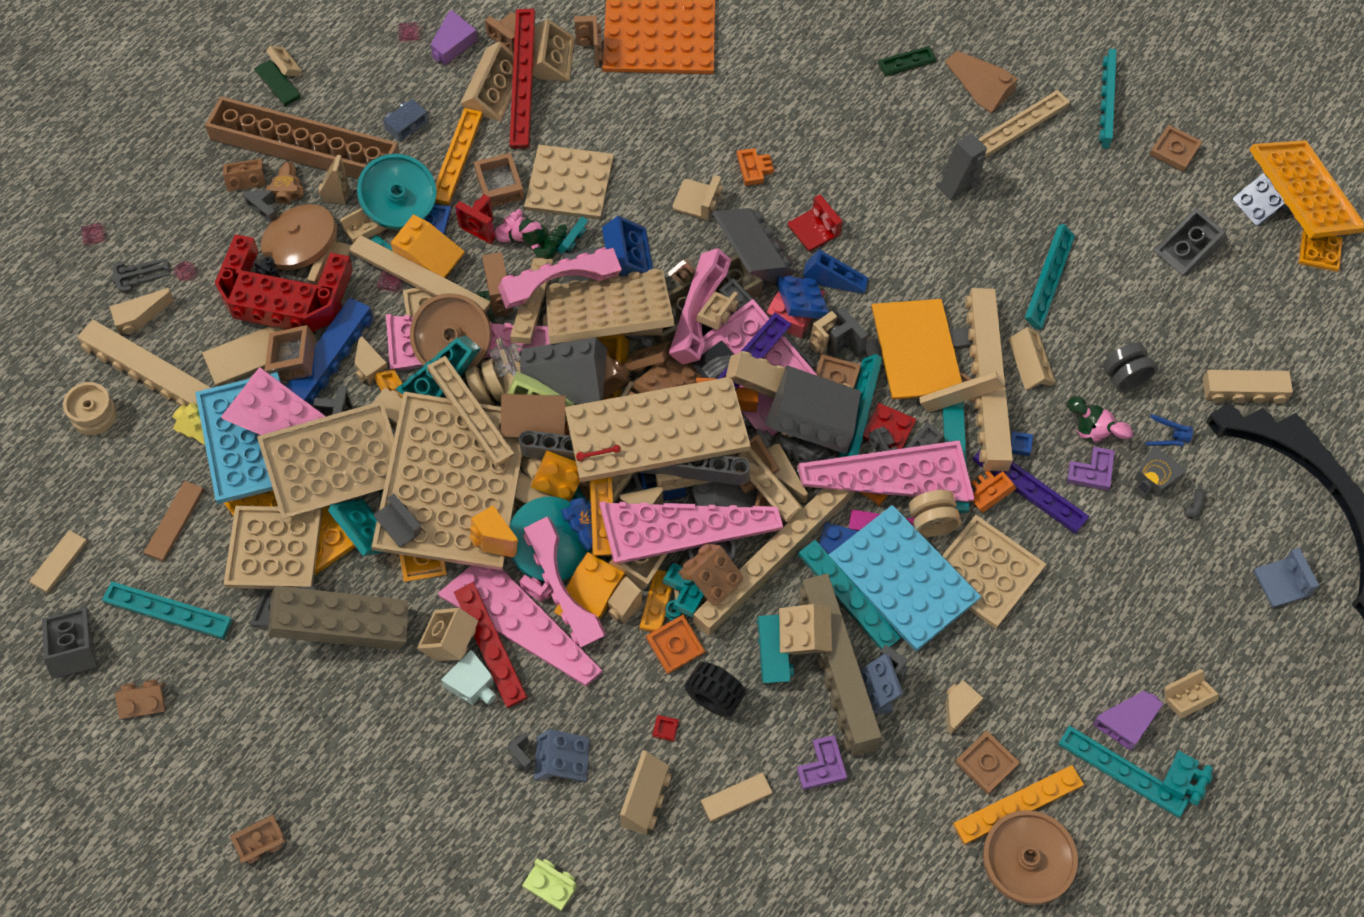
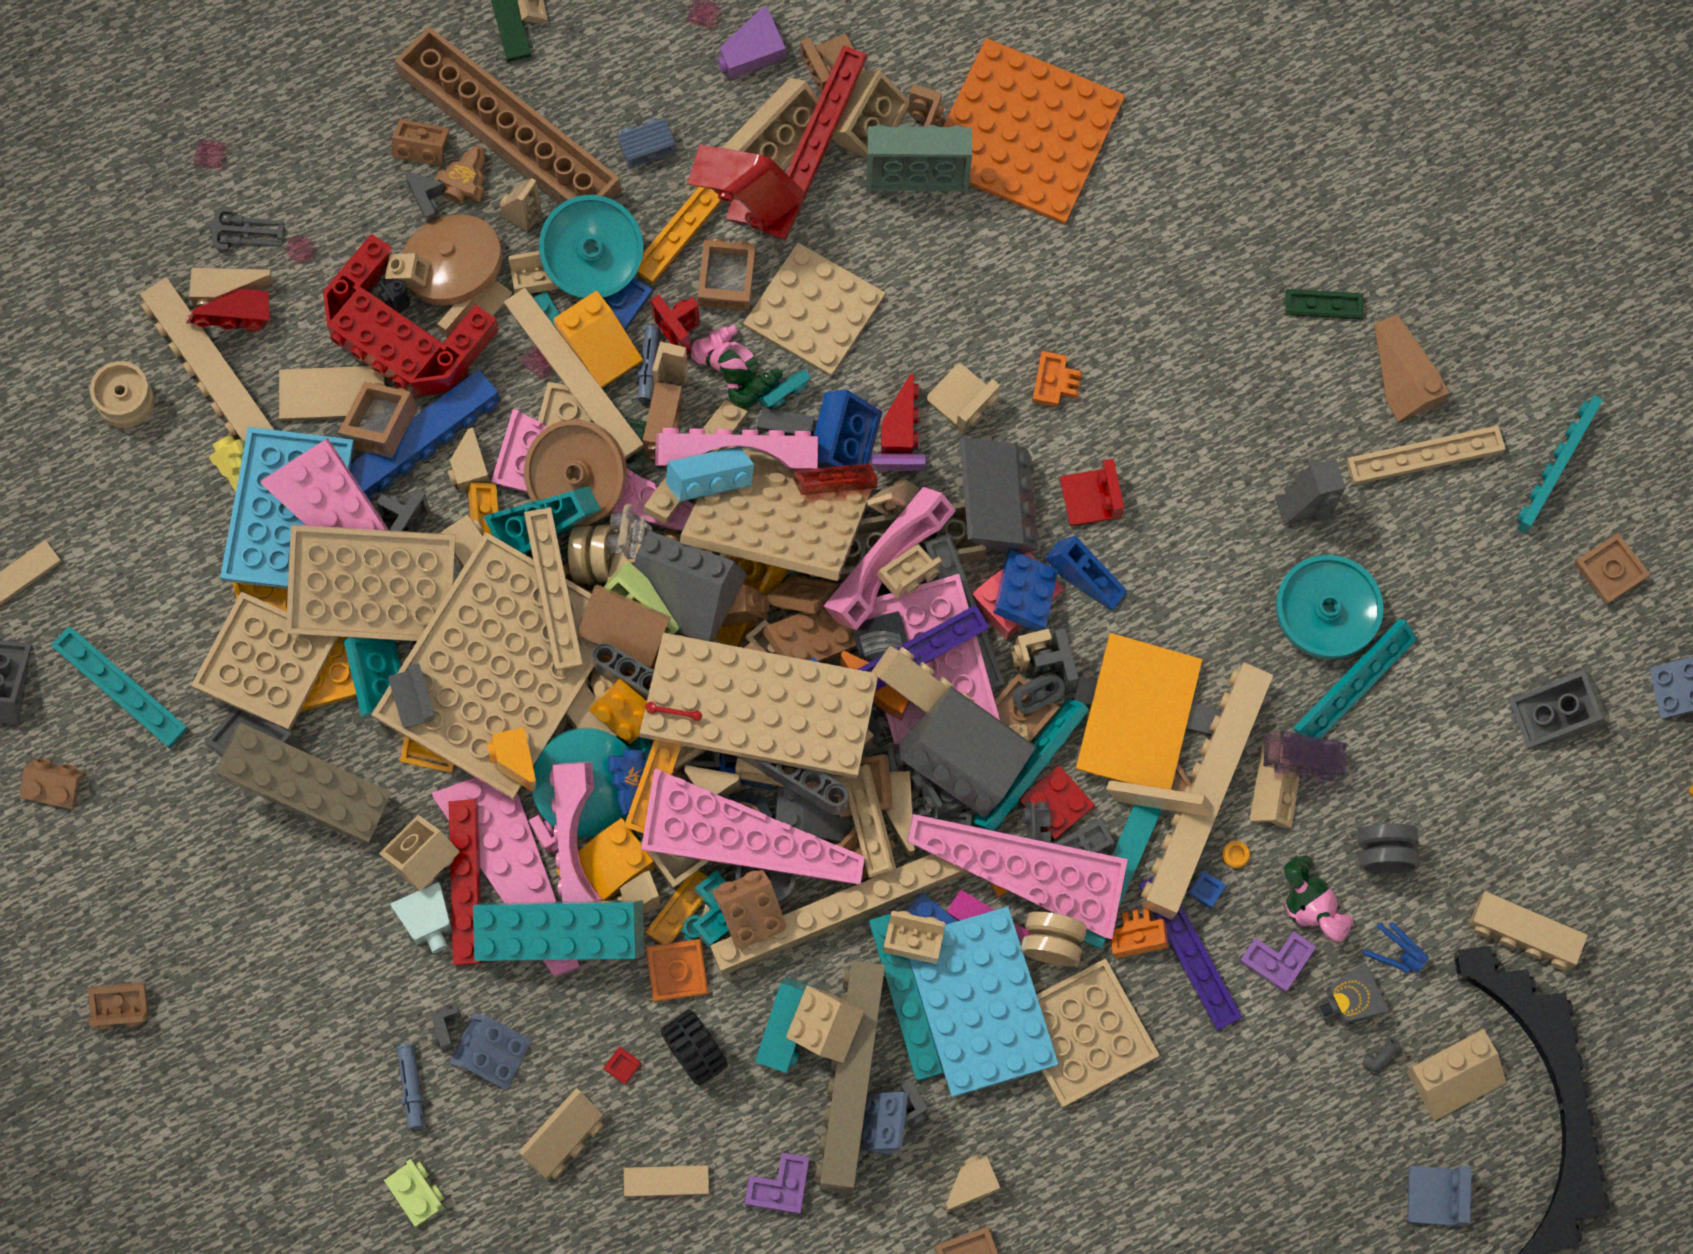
camera: 20 degrees right, 10 degrees up
(154, 322) = (240, 309): none -> red slope
(174, 521) = (167, 577): medium nougat tile -> none
(272, 247) = (408, 268): none -> tan brick
(475, 272) = (649, 353): none -> sand blue pin
(487, 239) = (670, 364): none -> tan panel
(494, 99) = (750, 181): none -> red windscreen
(517, 815) = (412, 1096): none -> sand blue pin
(548, 296) = (709, 473): none -> medium azure brick
(577, 646) = (558, 930): none -> teal brick
(599, 60) = (918, 158): none -> sand green slope
(637, 272) = (835, 479): none -> clear red plate
(663, 232) = (897, 425): none -> red slope
(673, 250) = (898, 462): none -> medium lavender slope
(838, 547) = (914, 936): none -> tan bracket
(840, 361) = (1038, 695): none -> dark grey plate
(1008, 235) = (1329, 607): none -> teal dish
(1027, 414) = (1235, 854): none -> light orange tile
(1043, 329) = (1304, 755): none -> clear purple brick
(1253, 495) = (1458, 1075): none -> tan slope

